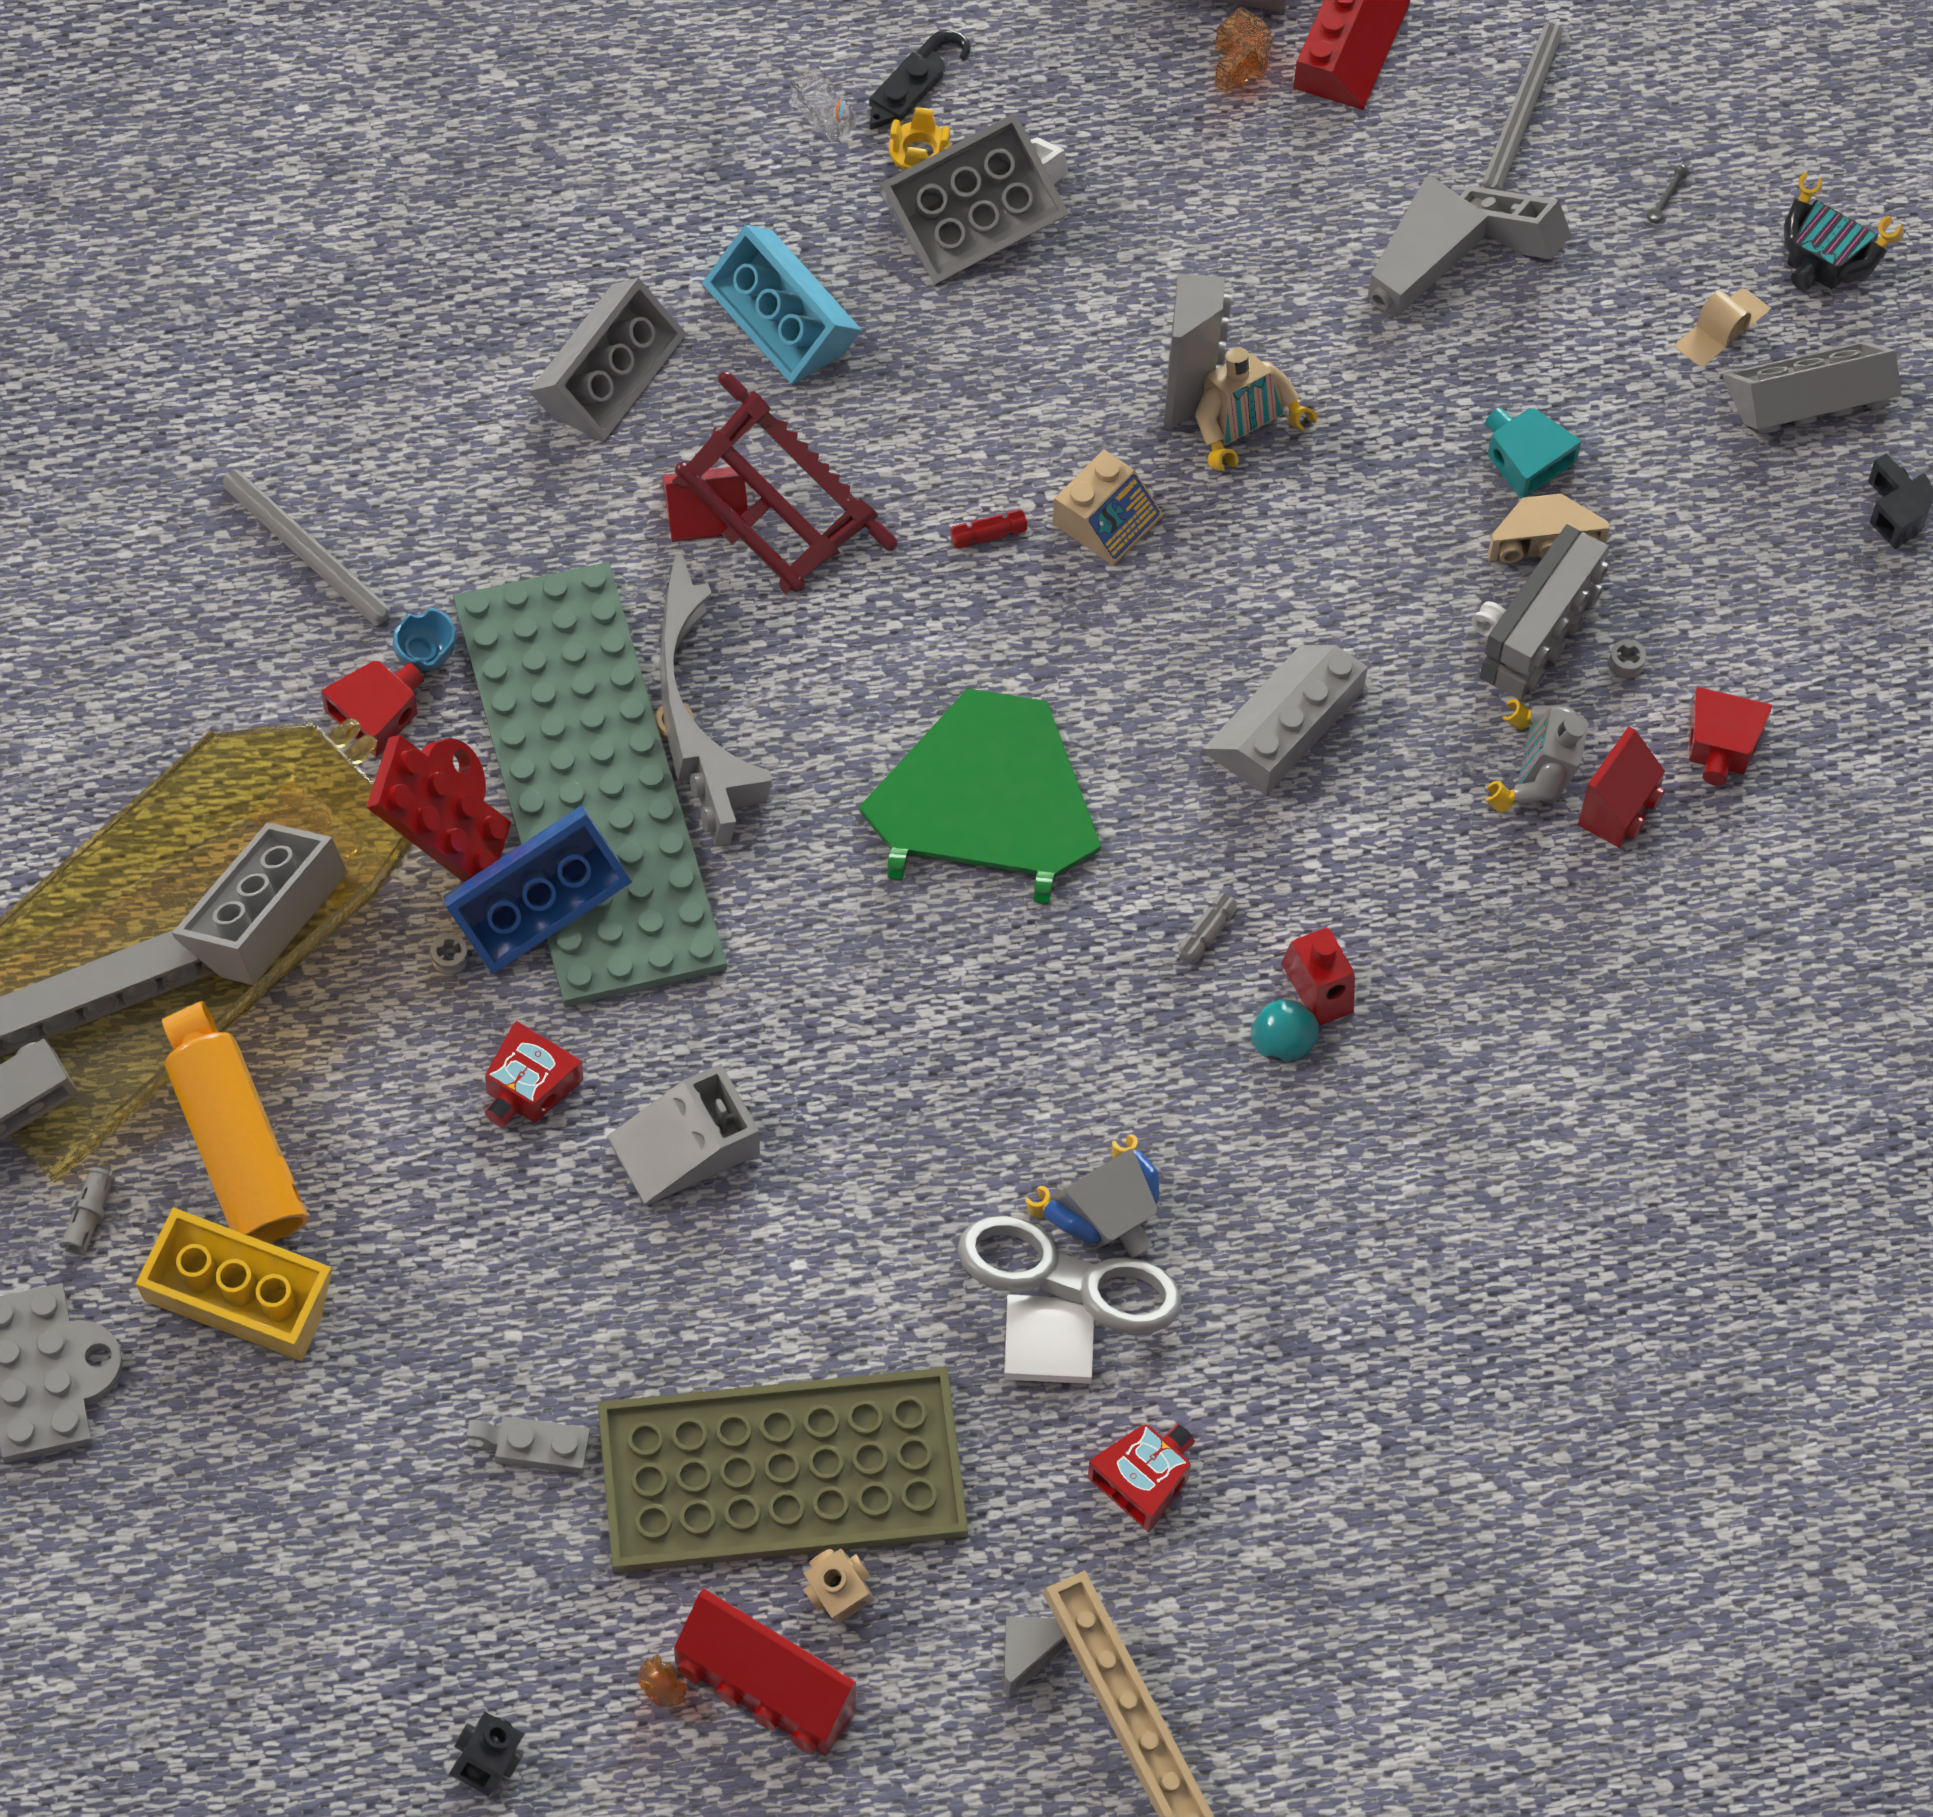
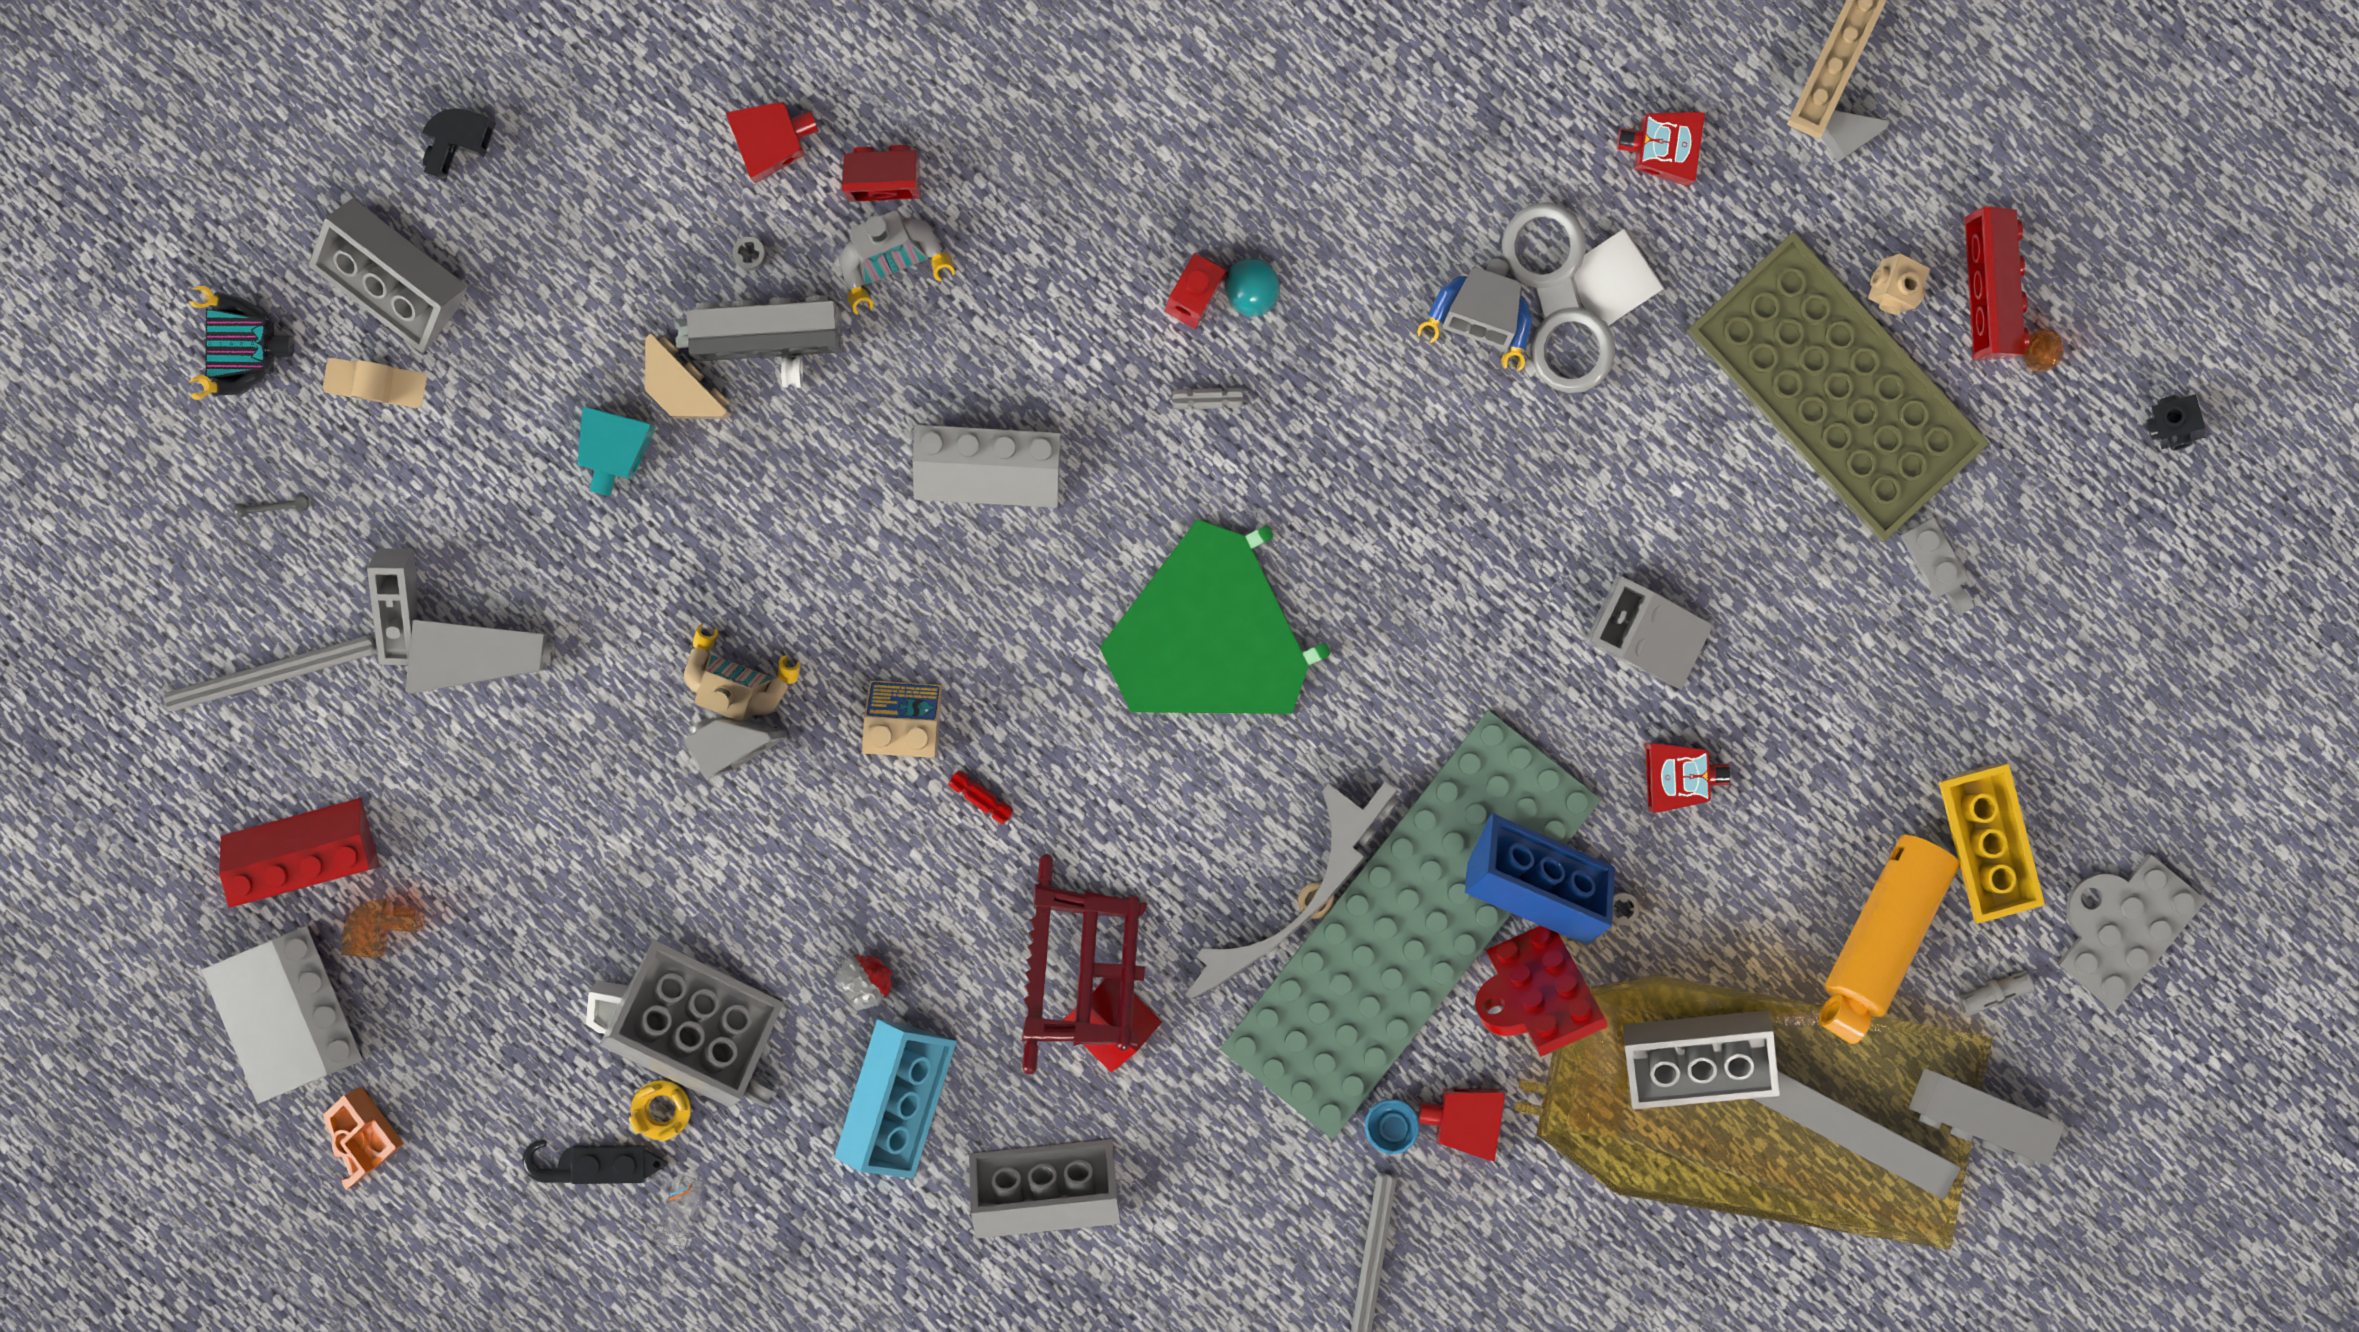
camera: 120 degrees left, 30 degrees up
(873, 218) = (760, 1091): none -> light grey bush
(902, 339) = (864, 981): none -> light grey piece

